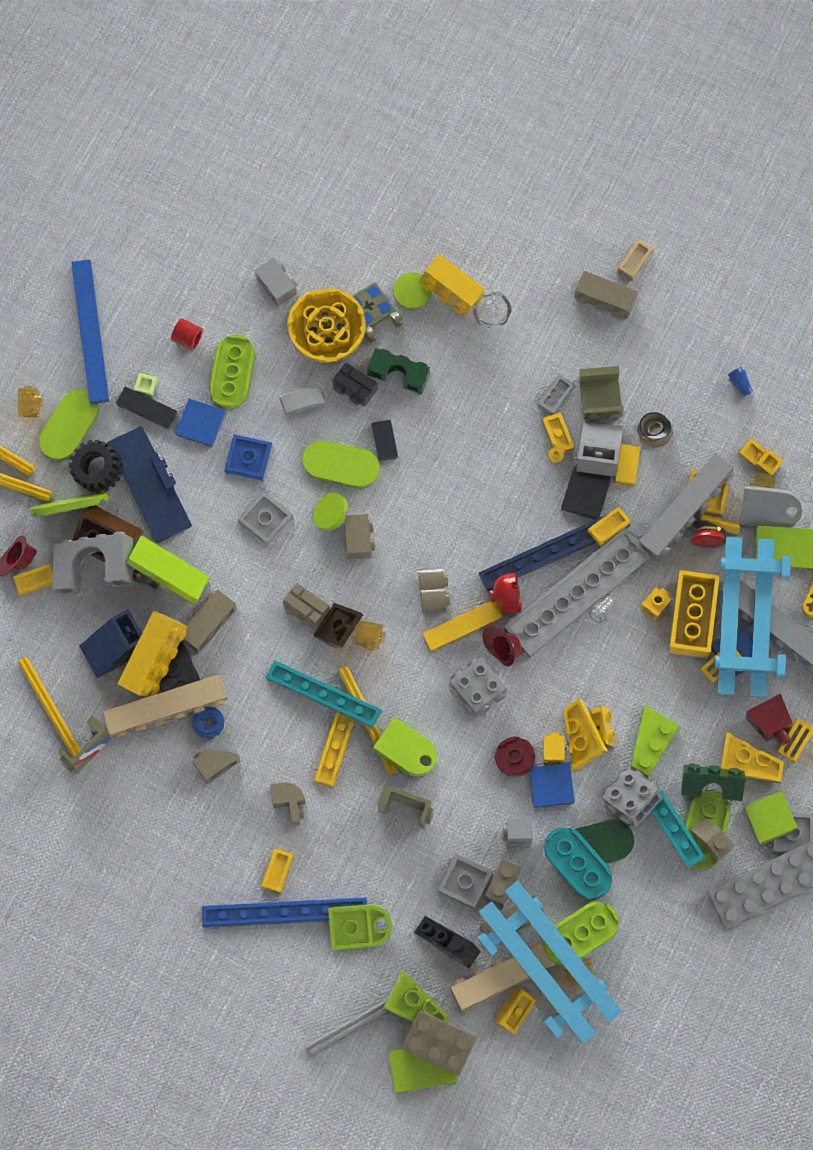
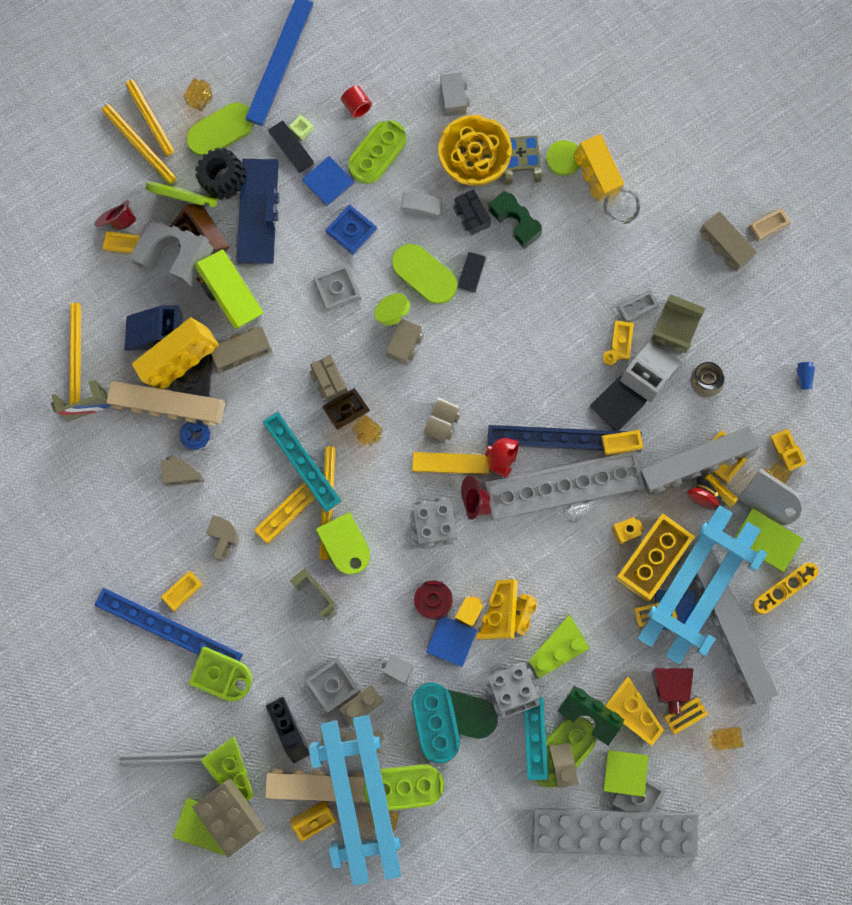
camera: 30 degrees right, 5 degrees up
(627, 465) = (667, 397): yellow tile -> none

